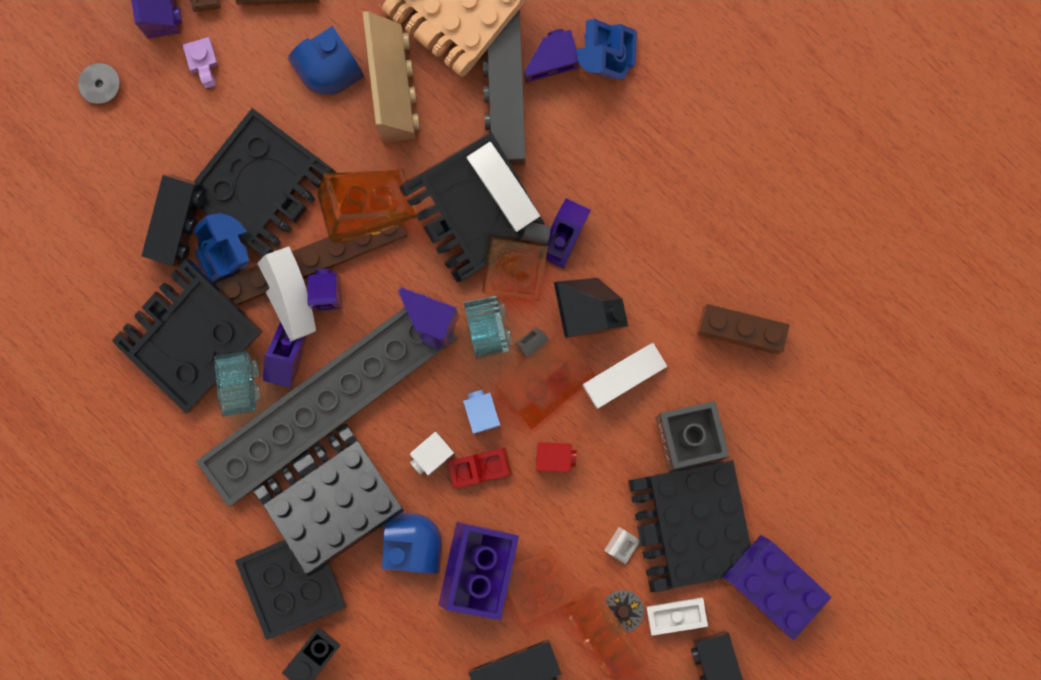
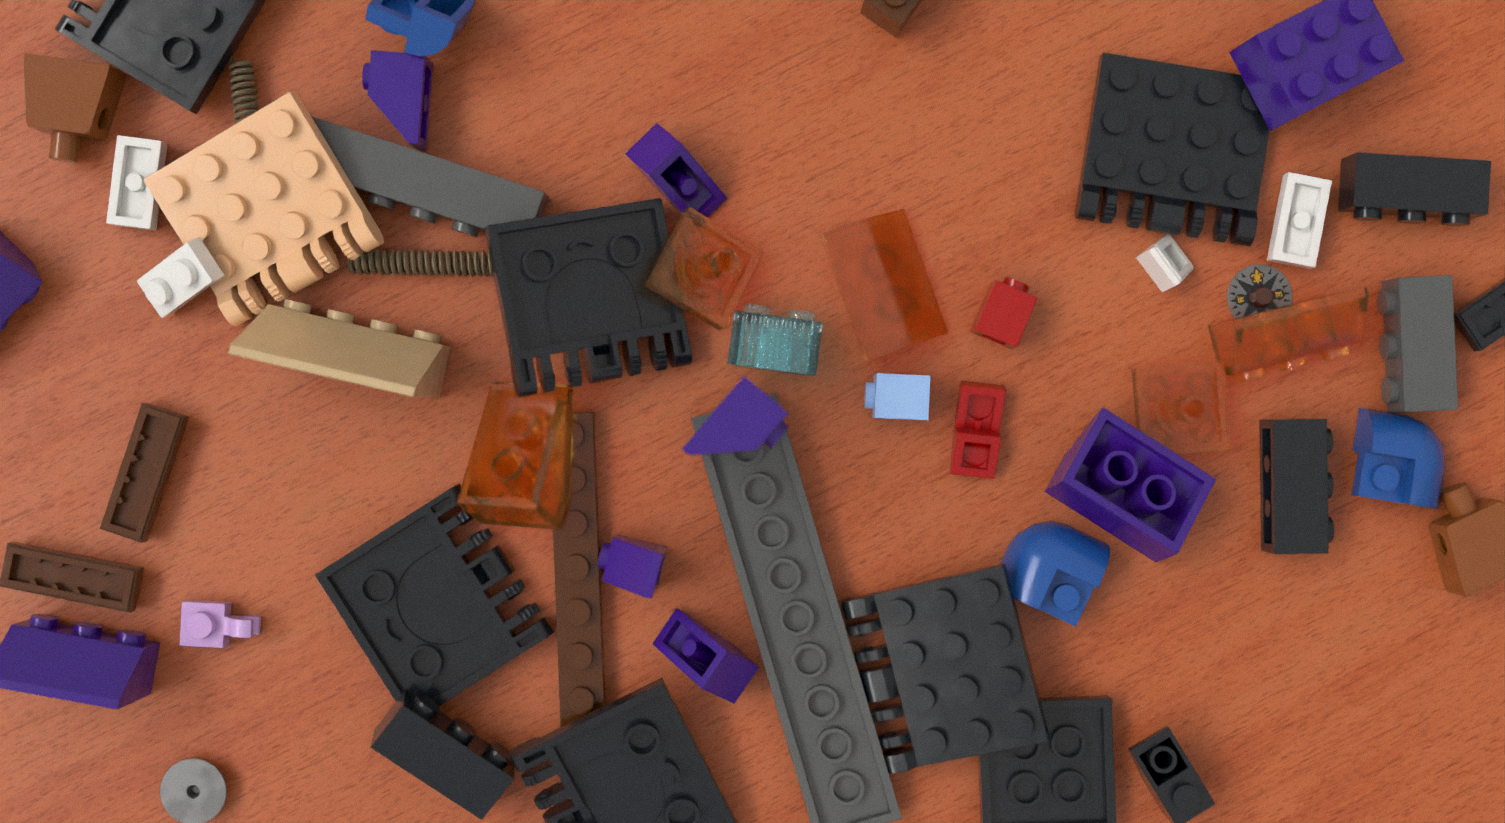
camera: 65 degrees left, 5 degrees up
(219, 246) = (512, 698): blue brick -> none
(236, 383) = (725, 745): clear light blue brick -> none
(288, 293) = (617, 620): white slope -> none
(325, 63) = (287, 440): blue brick -> none
(430, 454) = (934, 493): white brick -> none
(459, 96) = (483, 270): none -> dark tan piece
(503, 186) = (577, 238): white slope -> none
(532, 341) = (821, 283): dark grey tile -> none
(536, 233) = (662, 217): dark grey hinge -> none
(589, 307) = (803, 178): black slope -> none
(624, 375) = (922, 166): white slope -> none
(692, 436) = (1051, 98): dark grey brick -> none

